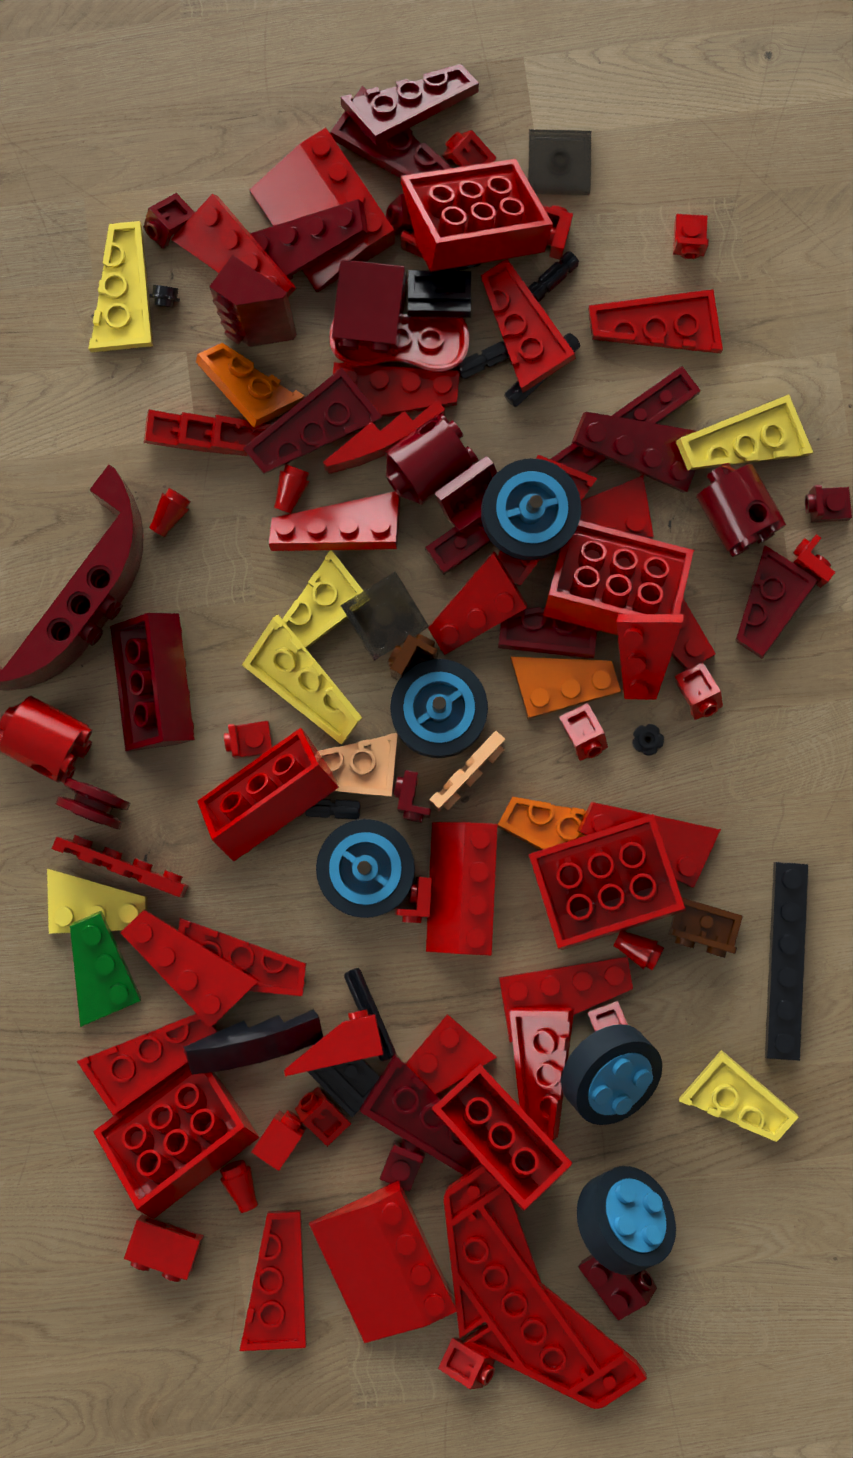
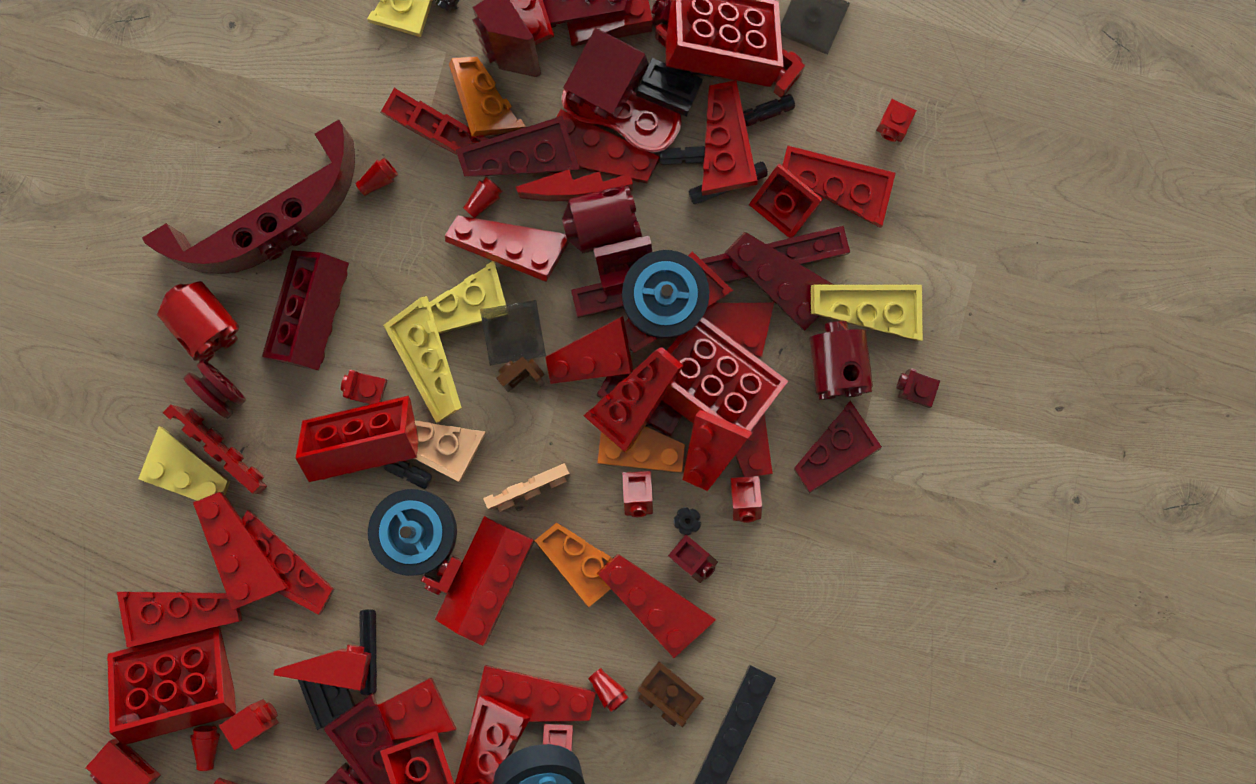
camera: 25 degrees right, 0 degrees up
(100, 970) = (165, 526): green wing -> none
(247, 1046) = (254, 636): black slope -> none
(321, 1116) = (293, 718): red bracket -> none
(405, 791) = (470, 483): dark red bracket -> none
(439, 708) = (526, 426): wheel -> none
(544, 633) = (633, 401): none -> red wing
(607, 882) = (602, 625): red slope -> none
(611, 364) = (785, 201): none -> red slope
(671, 776) = (693, 559): none -> dark red bracket
(813, 564) = (884, 435): red bracket -> none

